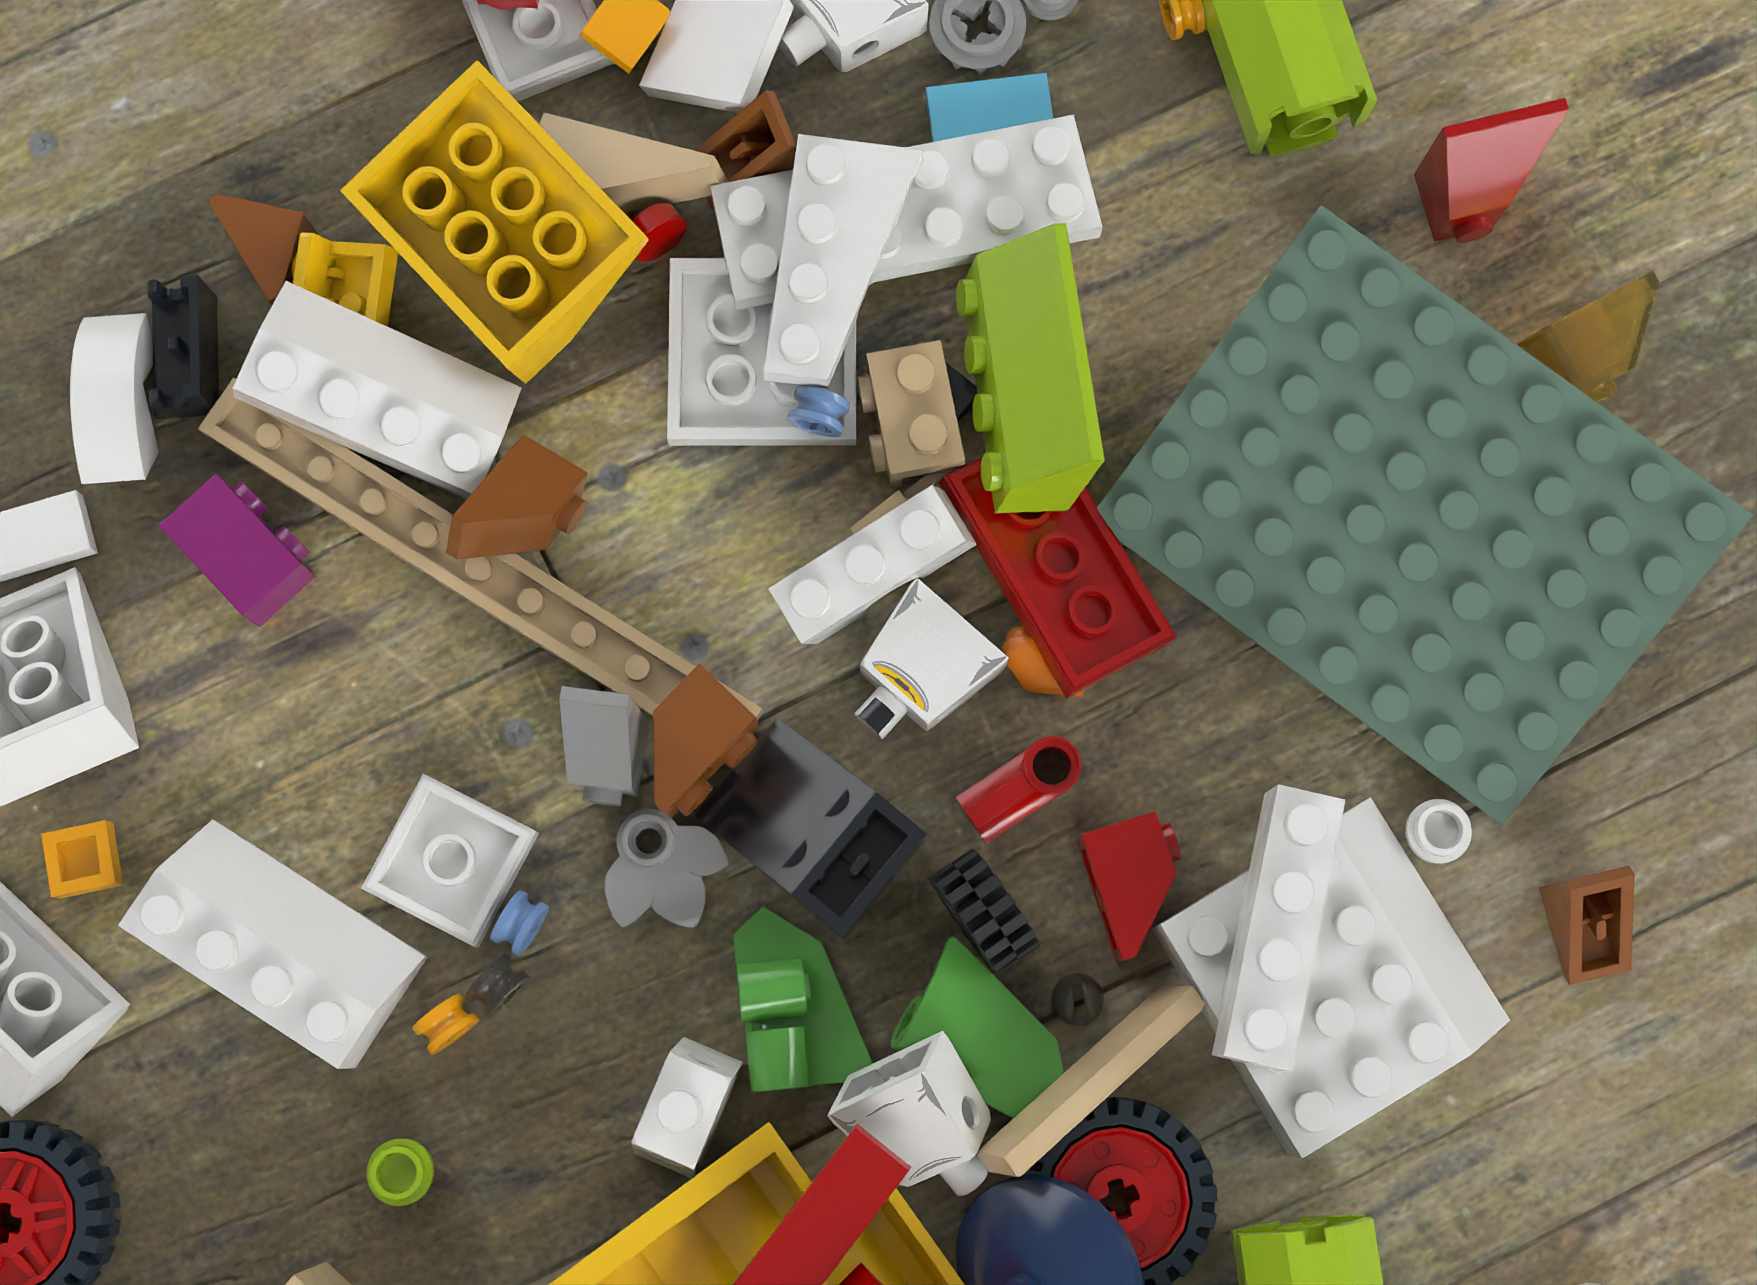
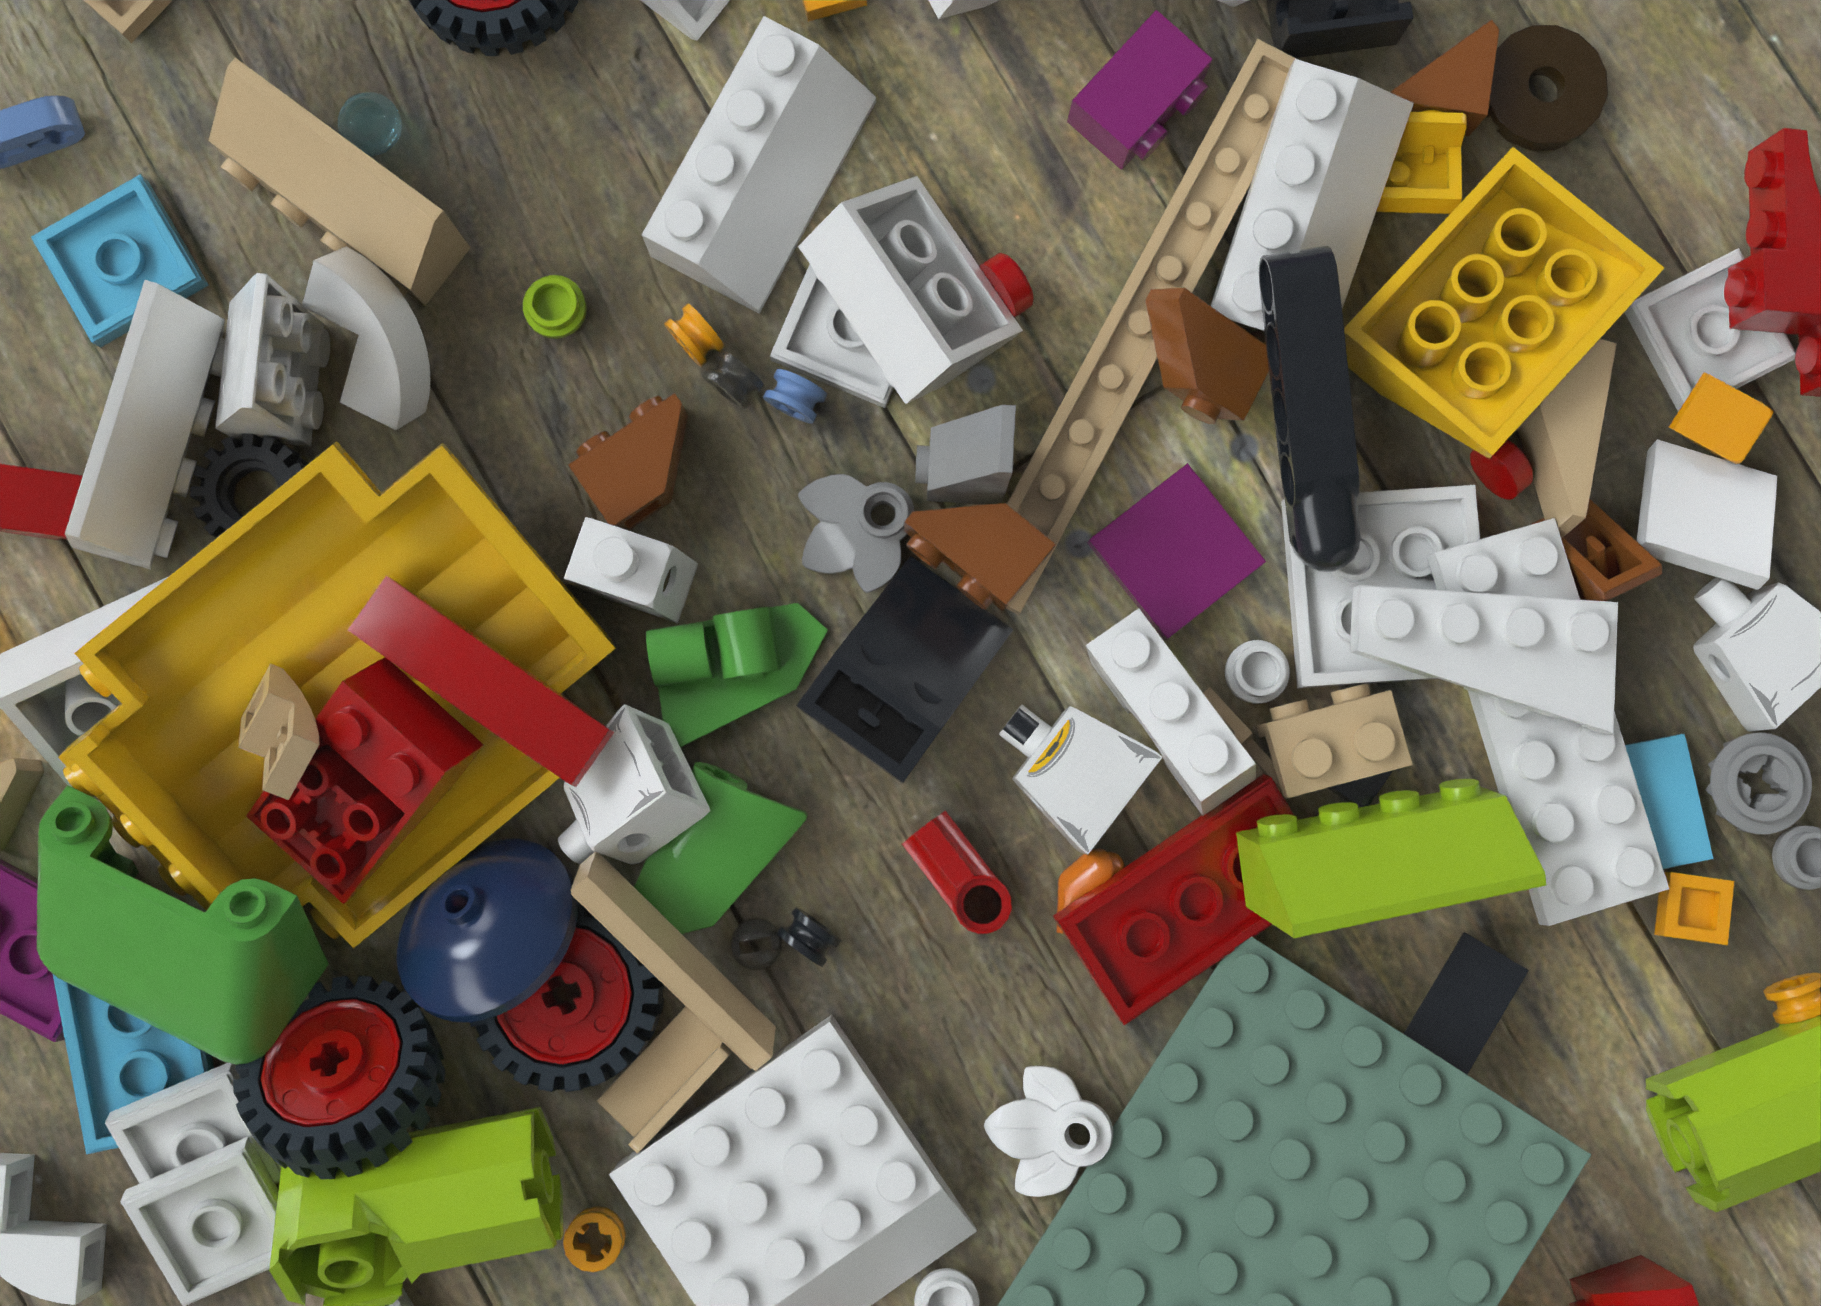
camera: 80 degrees right, 5 degrees up
(272, 125) = (1575, 72): none -> dark brown tile
(419, 796) = (908, 287): none -> white slope
(425, 698) = (1009, 283): none -> red tile
(579, 403) = (1312, 404): none -> black piece
(580, 1093) = (637, 466): none -> dark orange slope
(711, 551) = (1176, 552): none -> magenta tile
(818, 411) = (1326, 645): medium blue bush -> none
(837, 482) = (1257, 671): none -> white plate
(984, 911) = (832, 845): black tyre -> none
(1073, 944) = (809, 936): none -> black bush
(1093, 93) = (1695, 908): none -> light orange plate
(1130, 876) = (878, 990): red slope -> none
(1171, 310) = (1465, 1002): none -> black hinge
(1206, 1099) = (664, 1077): none -> tan panel
(1273, 728) = (1039, 1132): none -> white plate
(1278, 928) = (827, 1141): white brick -> none
(1378, 1198) = (580, 1253): none -> light orange bush

